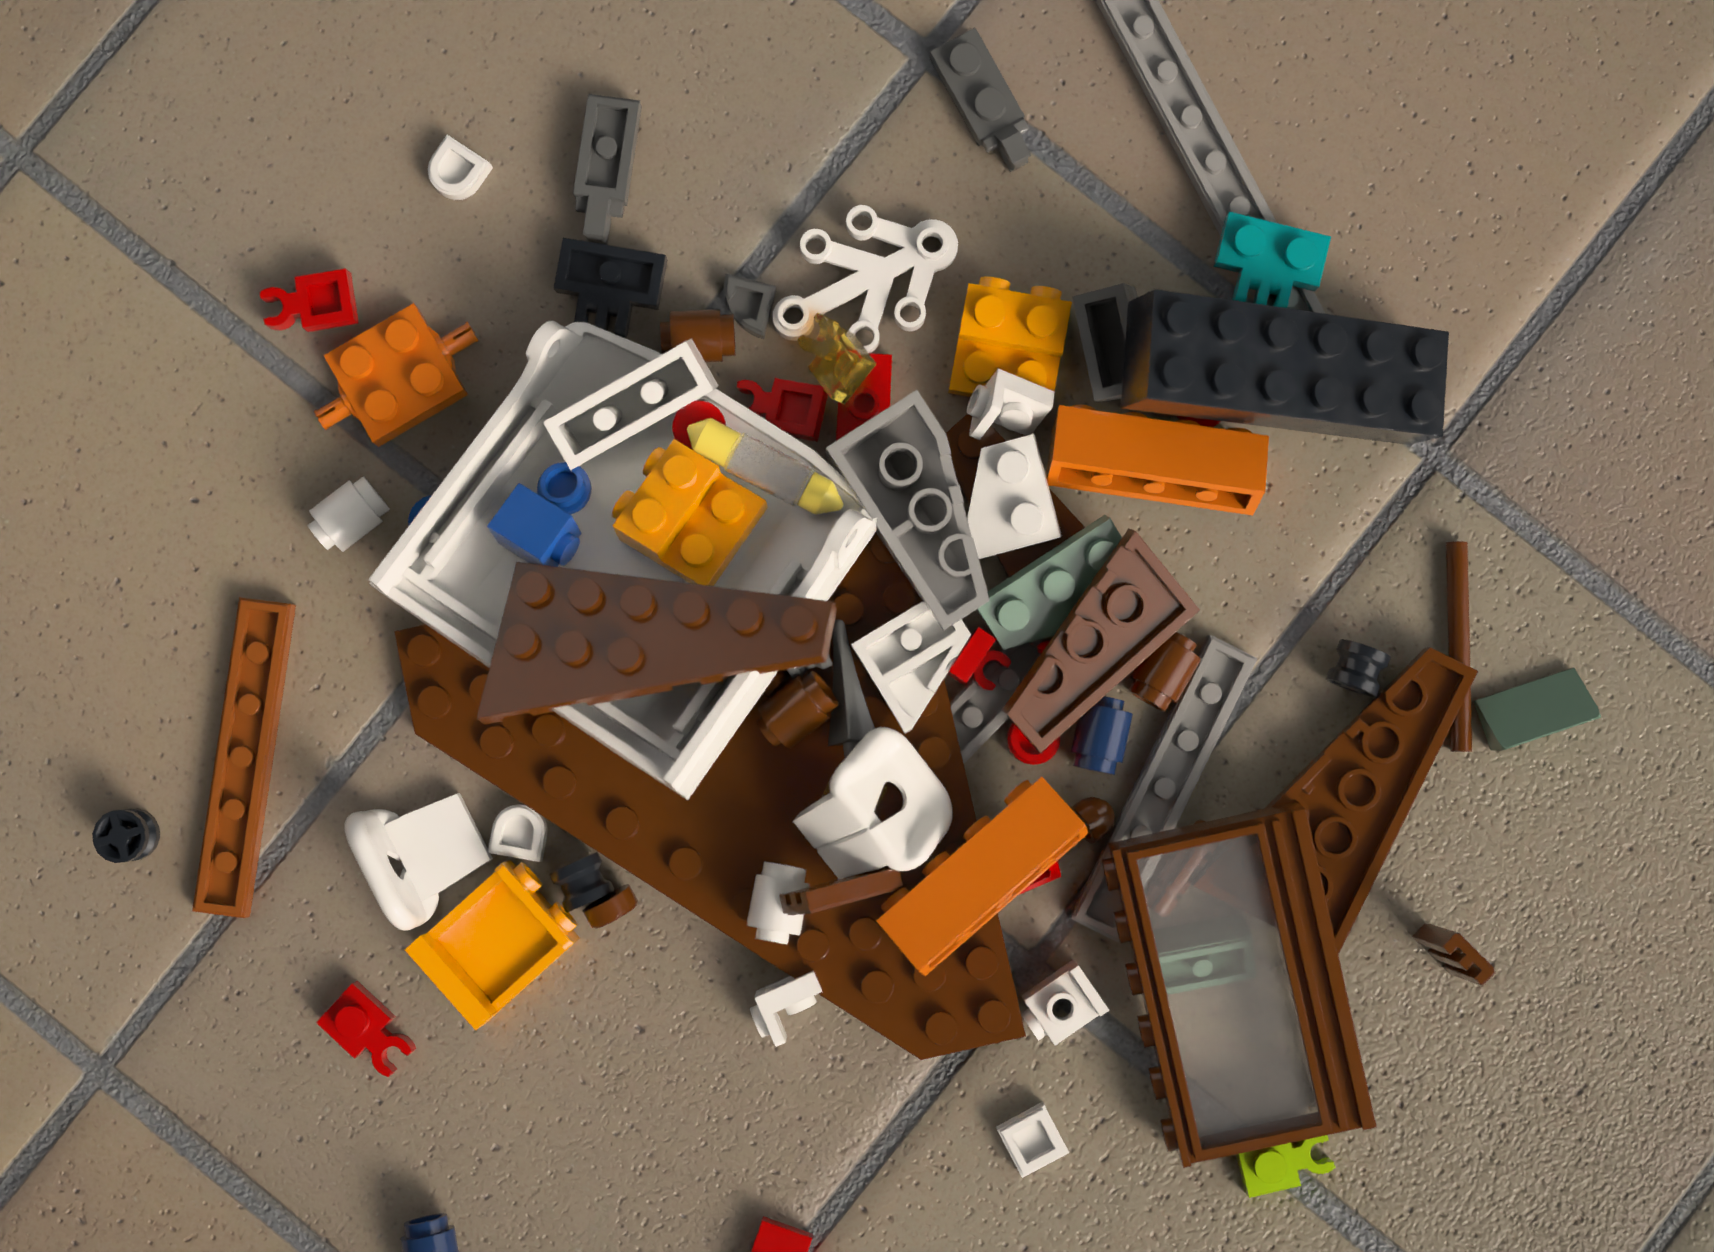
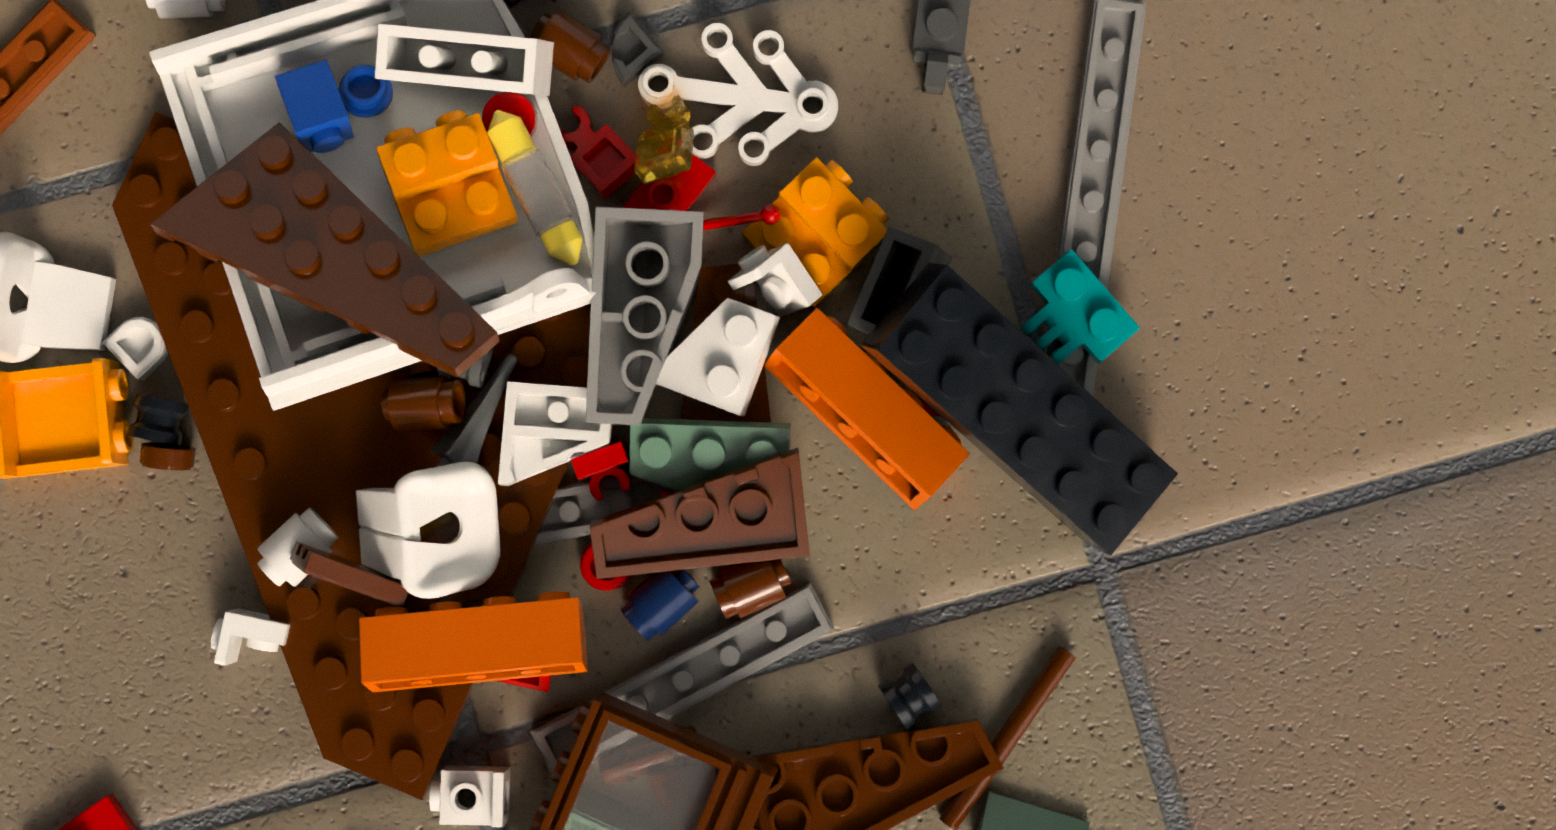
camera: 30 degrees right, 0 degrees up
(963, 358) = (769, 215): none -> red hinge
(1097, 816) = (607, 663): reddish brown hinge -> none

